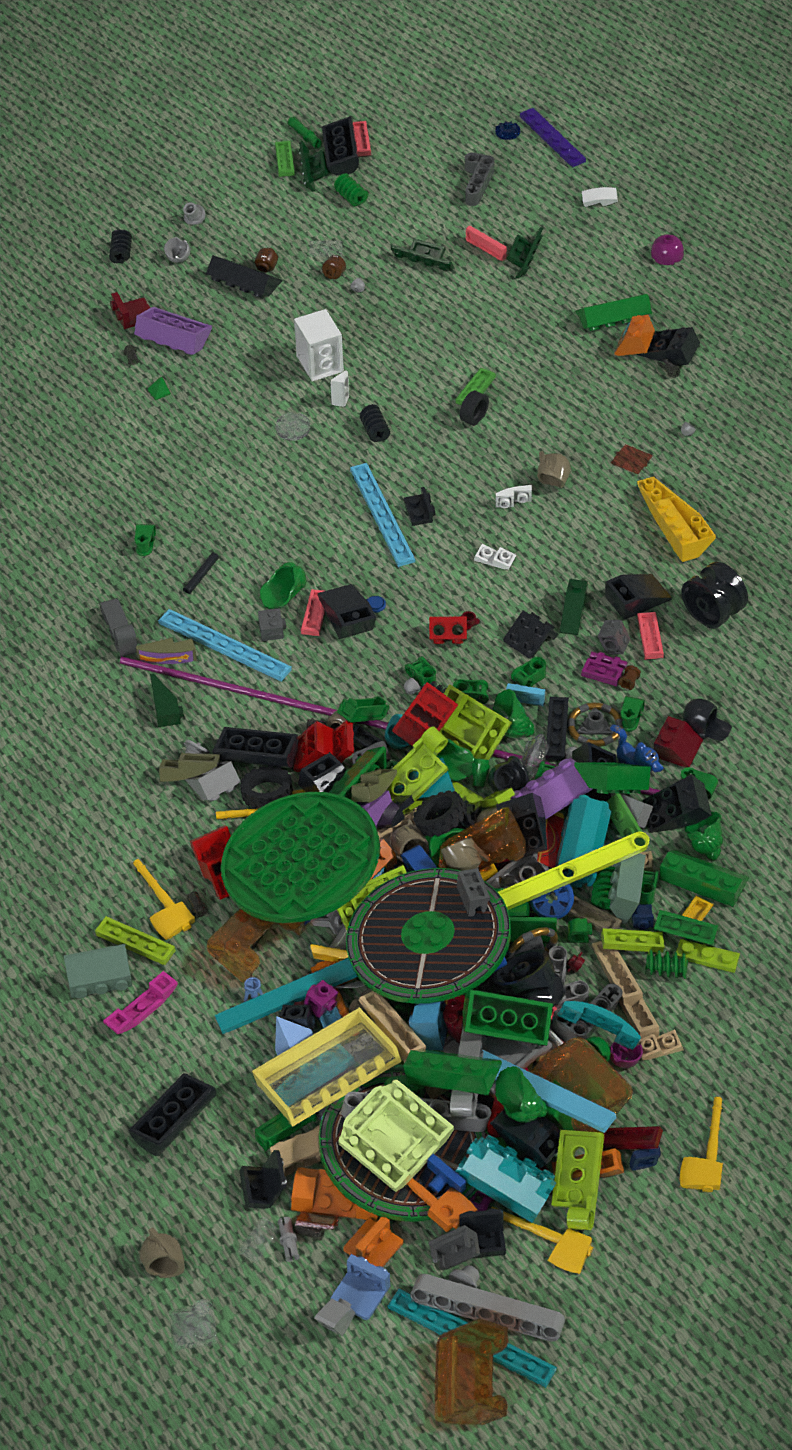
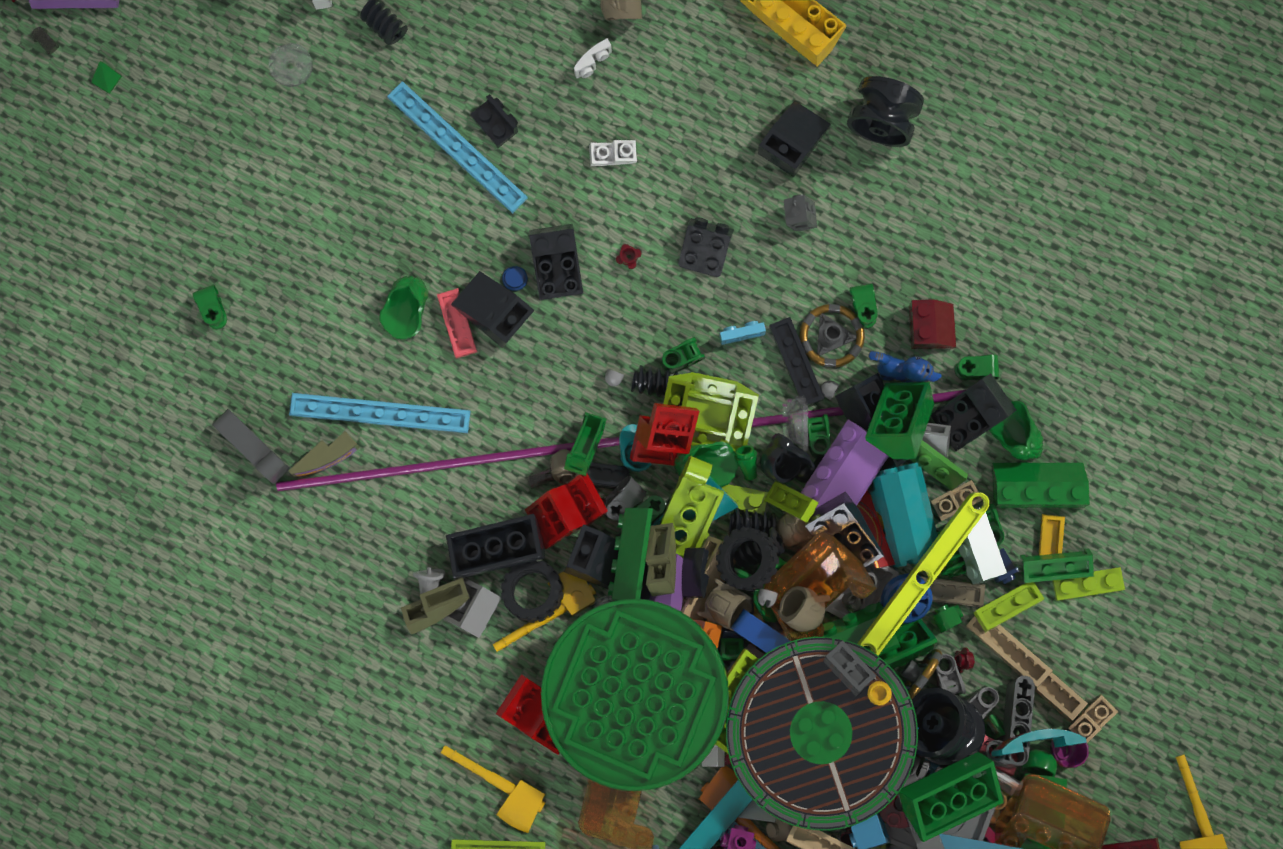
camera: 25 degrees left, 30 degrees up
(166, 704) = (363, 531): dark green slope -> none
(197, 904) = (537, 774): clear smoke pin -> none
(201, 572) = (299, 325): black piece -> none
(271, 624) = (419, 364): dark grey head -> none
(328, 953) = (714, 778): yellow tile -> none
(412, 601) = (556, 261): none -> black slope
(421, 671) = (613, 352): green piece -> none
(440, 841) = (767, 596): none -> light grey hinge
(448, 624) = (614, 278): red brick -> none
(487, 916) = (879, 693): none -> yellow plate
(510, 708) = (739, 367): green hair -> none
(530, 672) = (730, 305): green piece -> none
(573, 606) = (734, 188): dark green slope -> none
(604, 668) = (806, 262): magenta plate -> none
(628, 679) = (839, 257): reddish brown bush -> none
(650, 635) = (833, 188): coral plate -> none
(666, 963) = (1056, 618): green piece -> none
(701, 712) = (947, 283): black piece -> none

